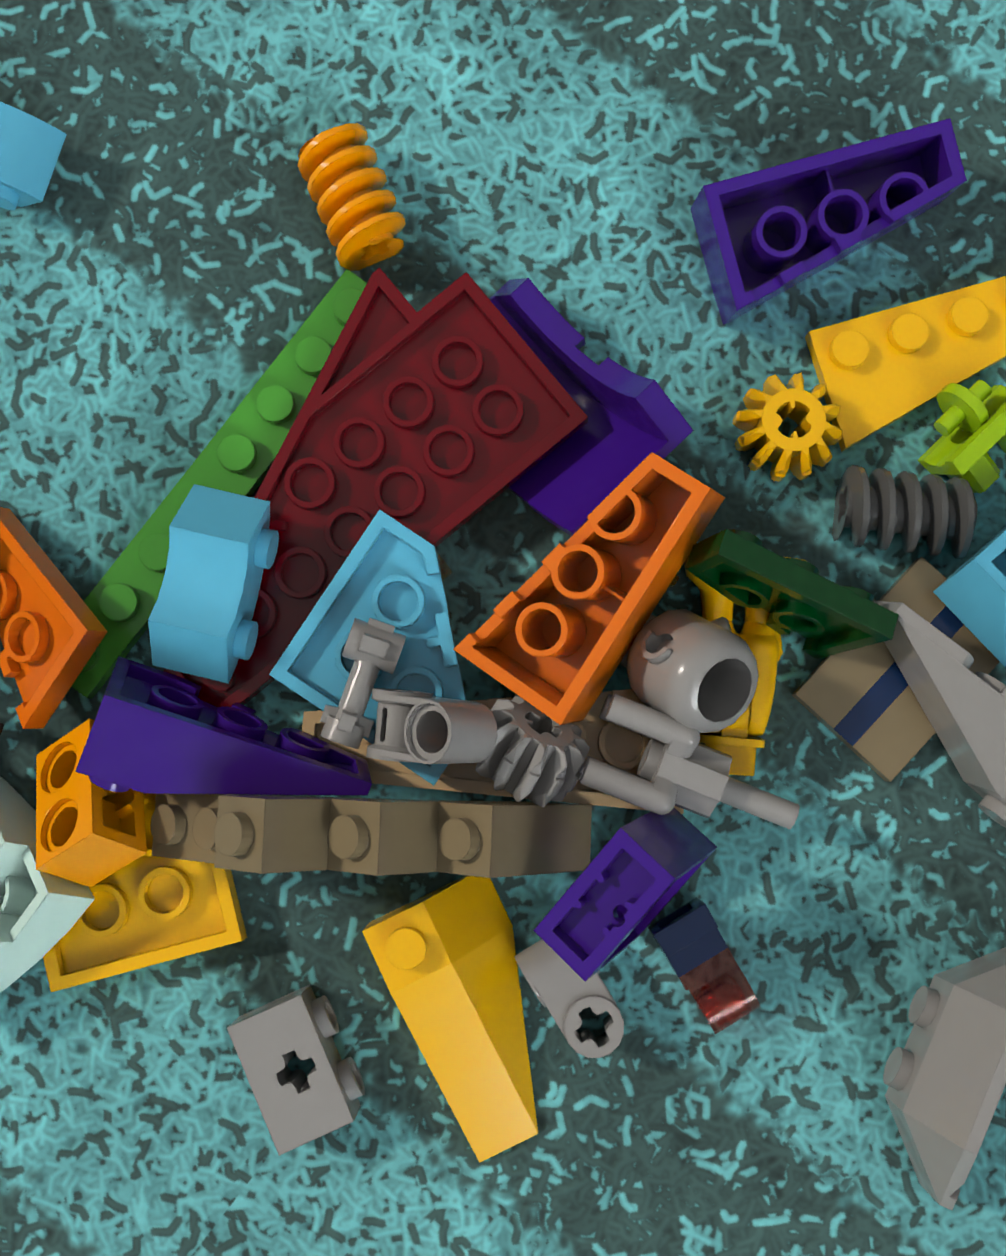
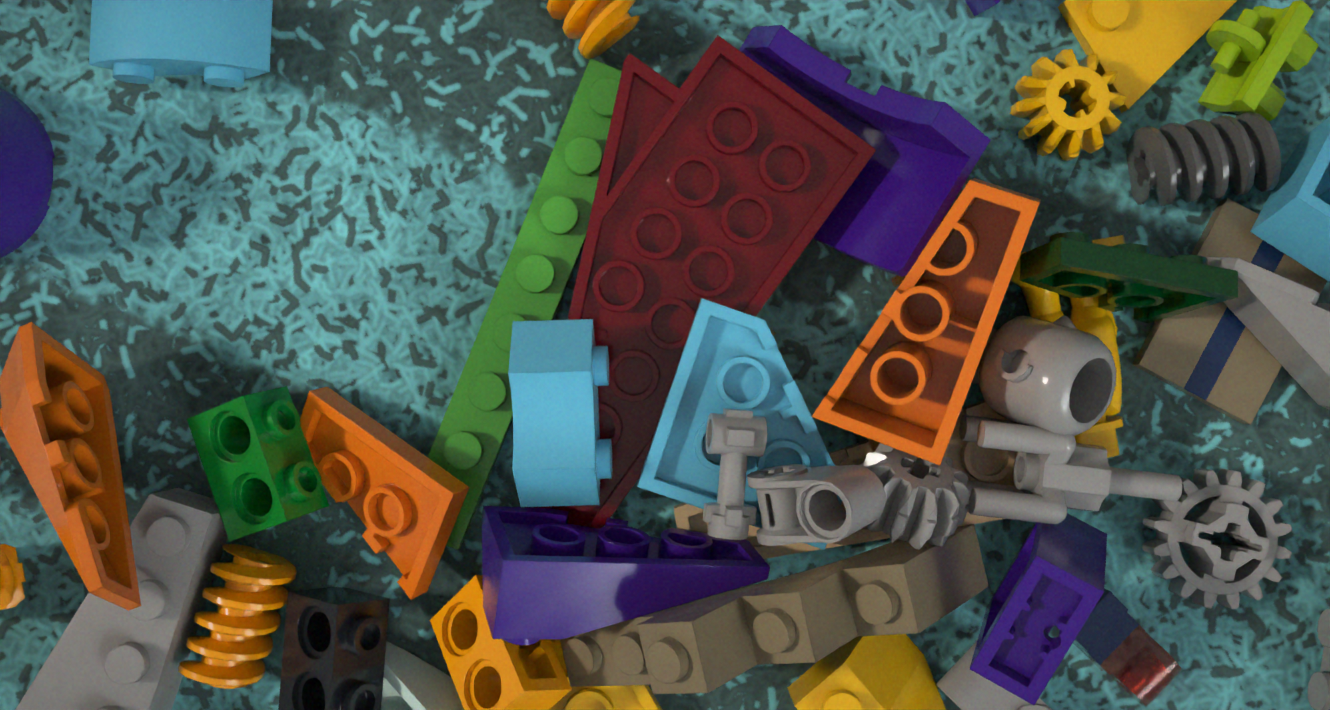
camera: 15 degrees left, 5 degrees up
(819, 908) = (1224, 568): none -> light grey gear

